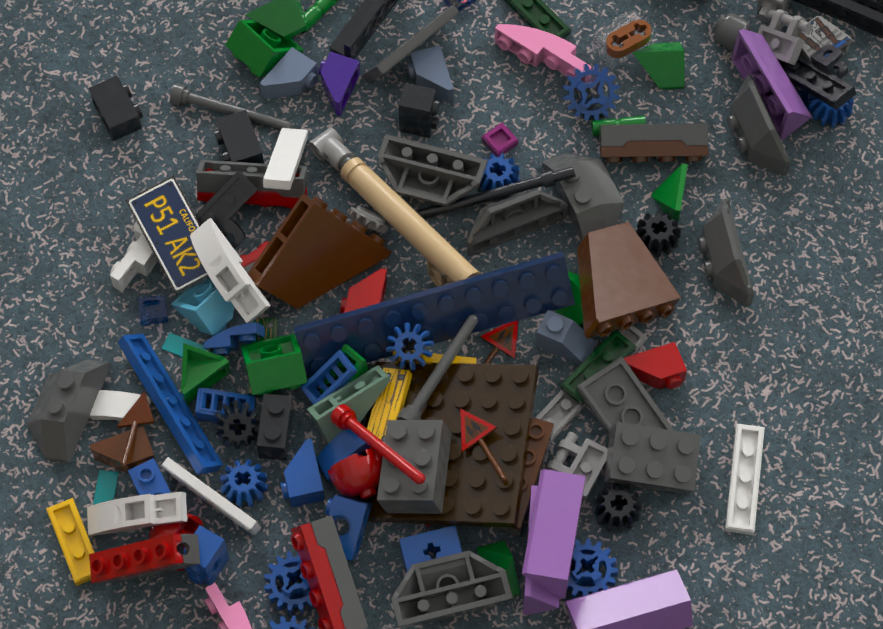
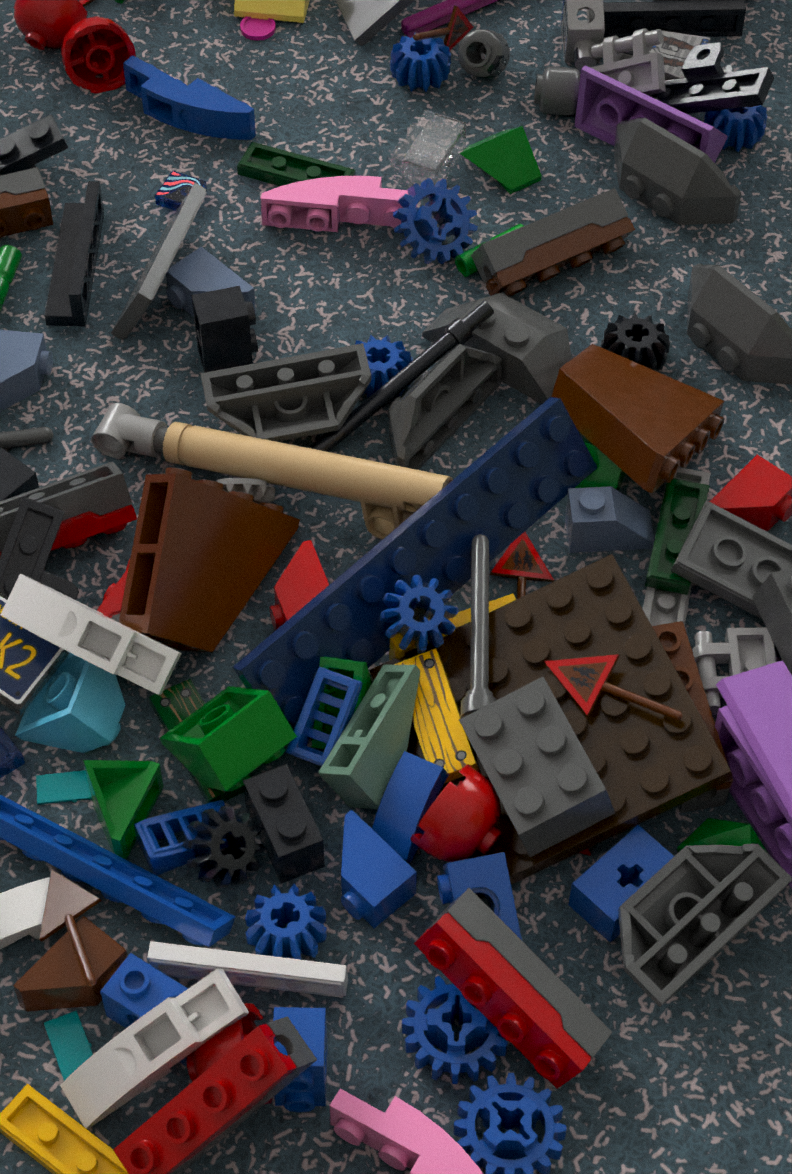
camera: 30 degrees left, 10 degrees down
(228, 339) = (159, 715): blue slope -> none
(285, 159) = (77, 464): white tile -> none
(338, 79) = (82, 346): dark purple slope -> none
(346, 419) = (390, 752): red piece -> none
(500, 140) = (348, 327): magenta tile -> none
(629, 41) = (451, 143): dark orange beam -> none
(670, 192) = (618, 291): green slope -> none

